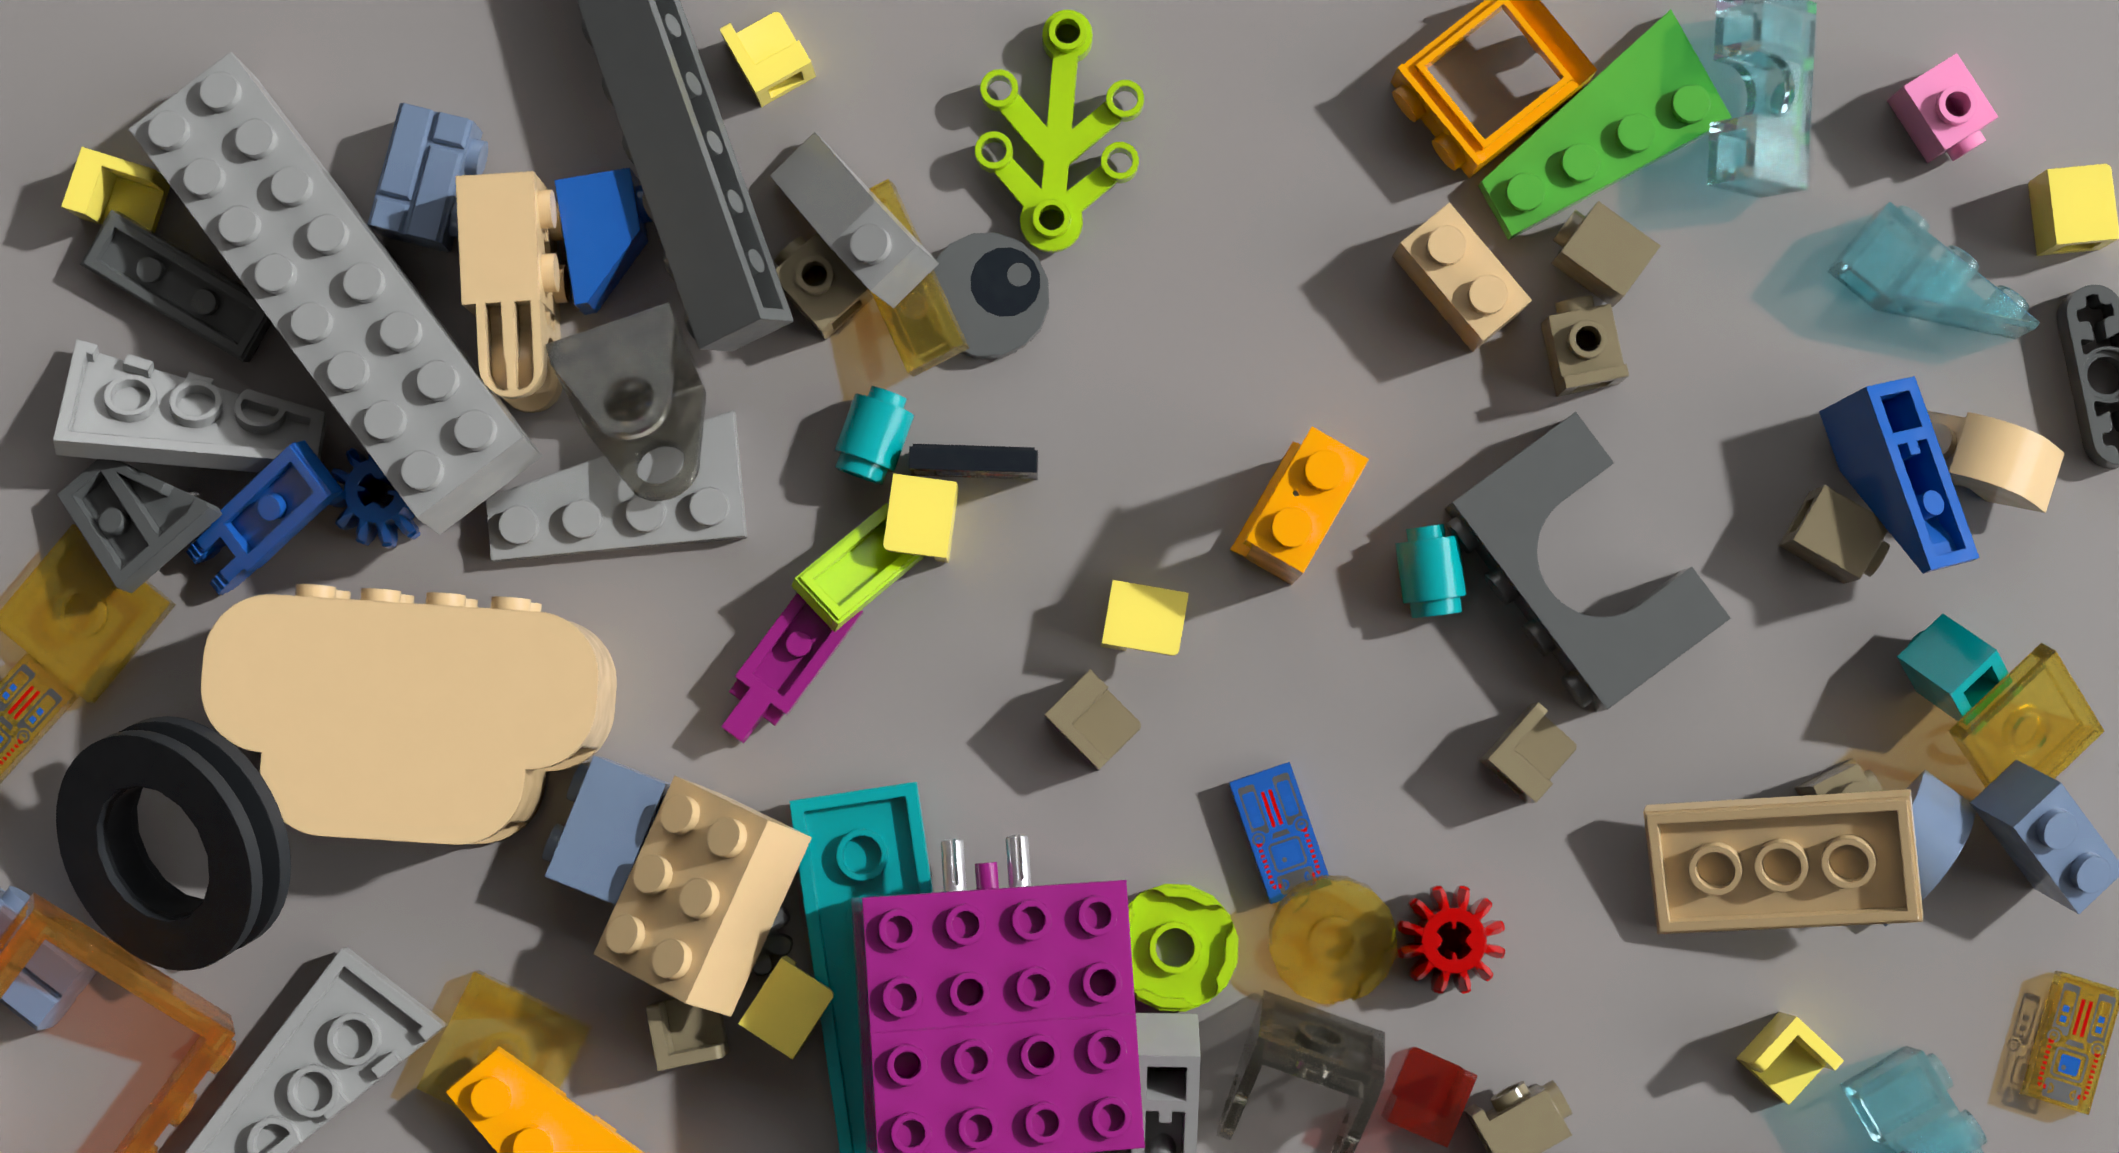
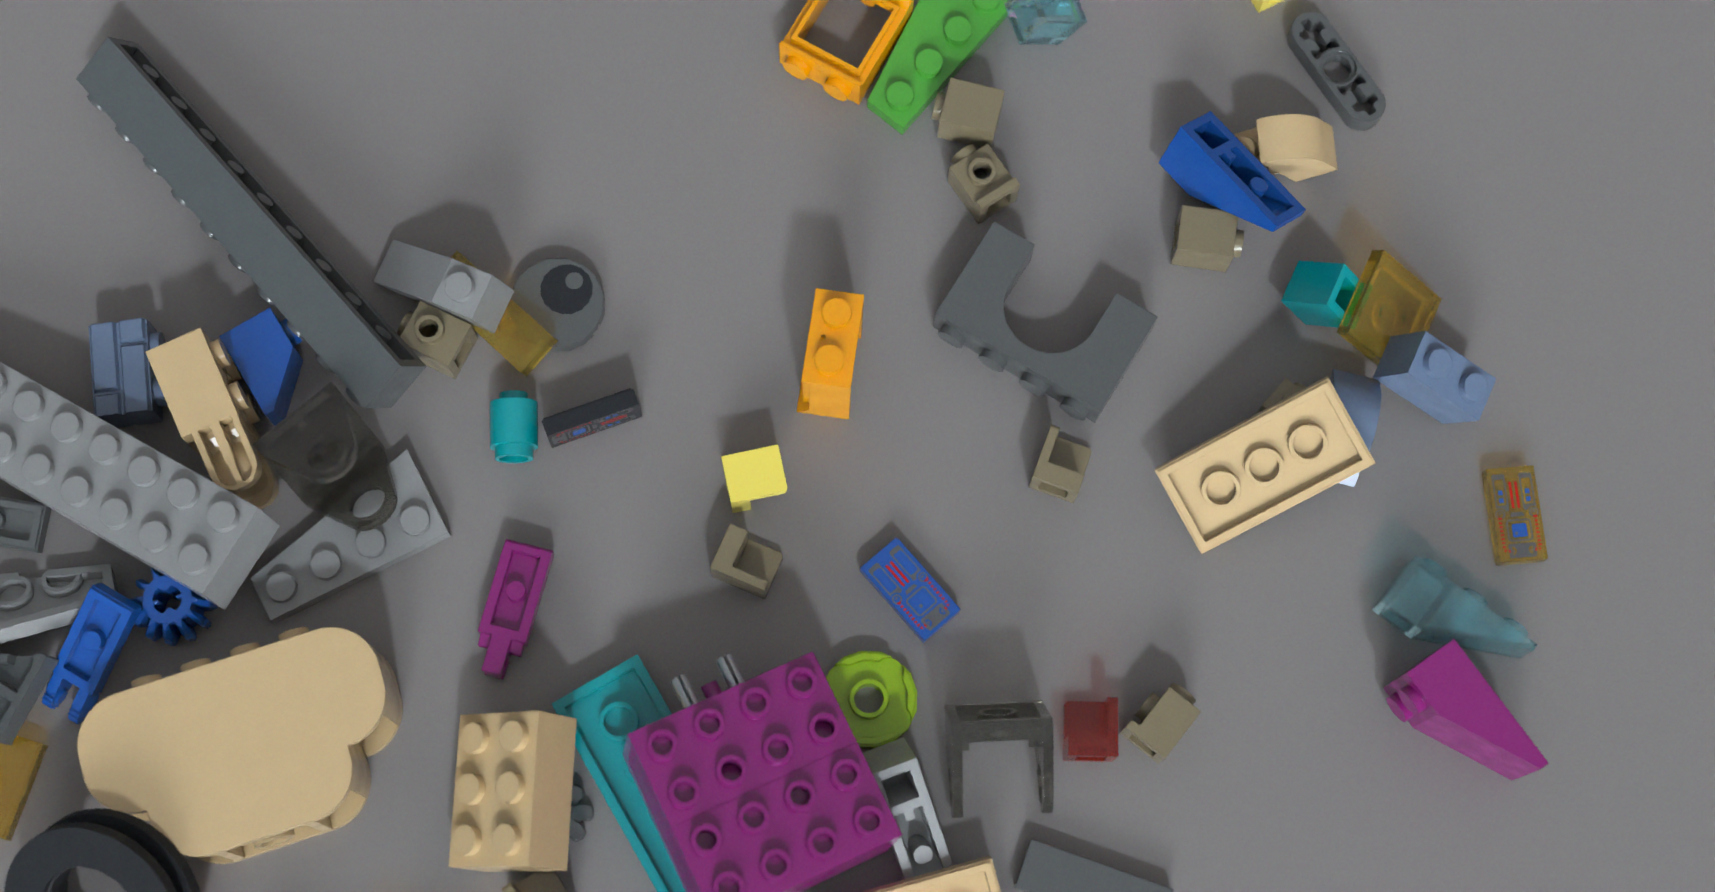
camera: 25 degrees left, 10 degrees down
(604, 828) = (423, 776): sand blue brick -> none
(769, 57) = (342, 203): light yellow panel -> none
(787, 1008) = (606, 851): light yellow panel -> none
(852, 572) = (539, 520): lime tile -> none
(921, 516) = (569, 467): light yellow panel -> none
(1058, 143) = (567, 183): lime plant -> none
(1332, 939) = (977, 648): clear yellow tile -> none
(1431, 571) = (941, 369): teal brick -> none
(1461, 277) = (879, 166): tan brick -> none
(1472, 938) = (1076, 610): red gear -> none
(1787, 1056) = (1327, 600): light yellow panel -> none
(1913, 275) = (1188, 52): clear light blue slope -> none

